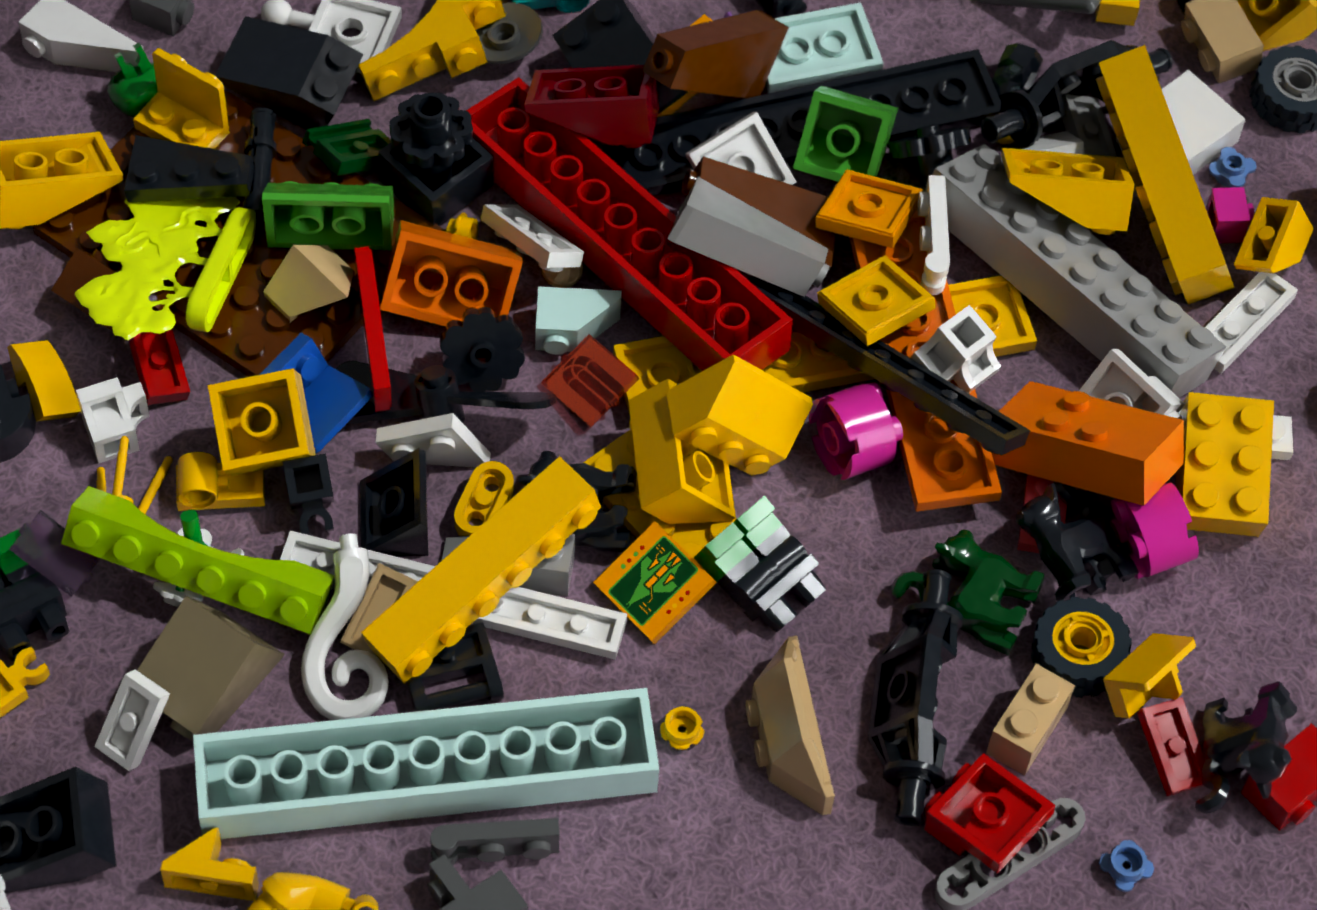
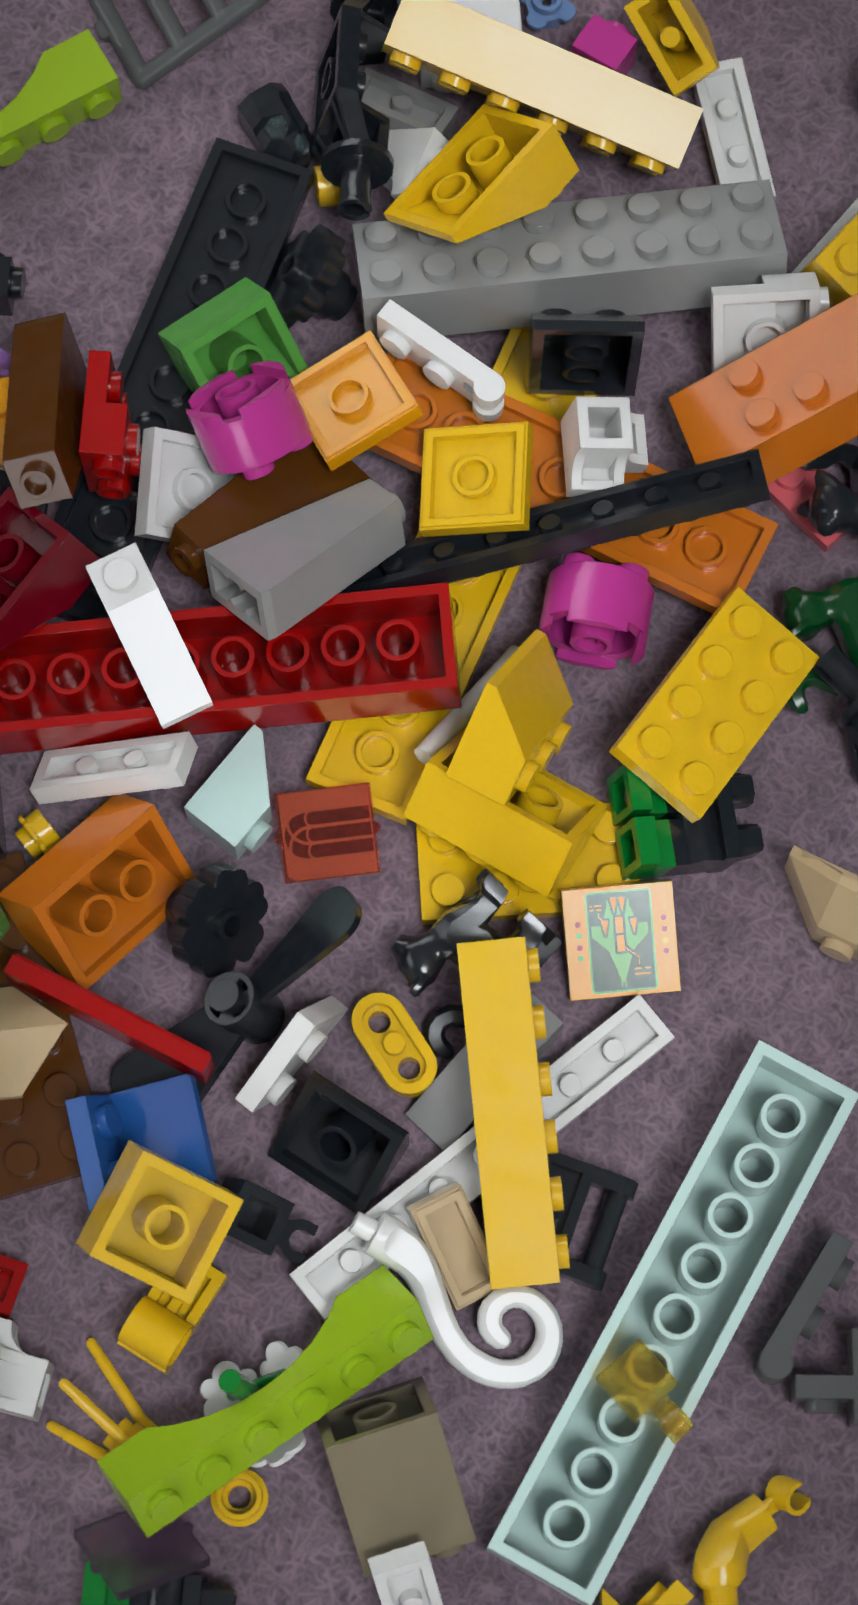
camera: 50 degrees left, 15 degrees up
(129, 585) = (249, 1514): none -> yellow plate
(361, 756) = (641, 1387): none -> clear yellow plate
(622, 182) = (149, 635): none -> white slope
(683, 717) = (810, 1020): yellow plate -> none
(735, 89) = (108, 438): none -> red plate
(805, 157) = (249, 420): none -> dark pink brick
(824, 48) = (92, 277): light aqua plate -> none
(847, 525) = (714, 705): none -> yellow plate
(1013, 307) = (584, 352): none -> black slope

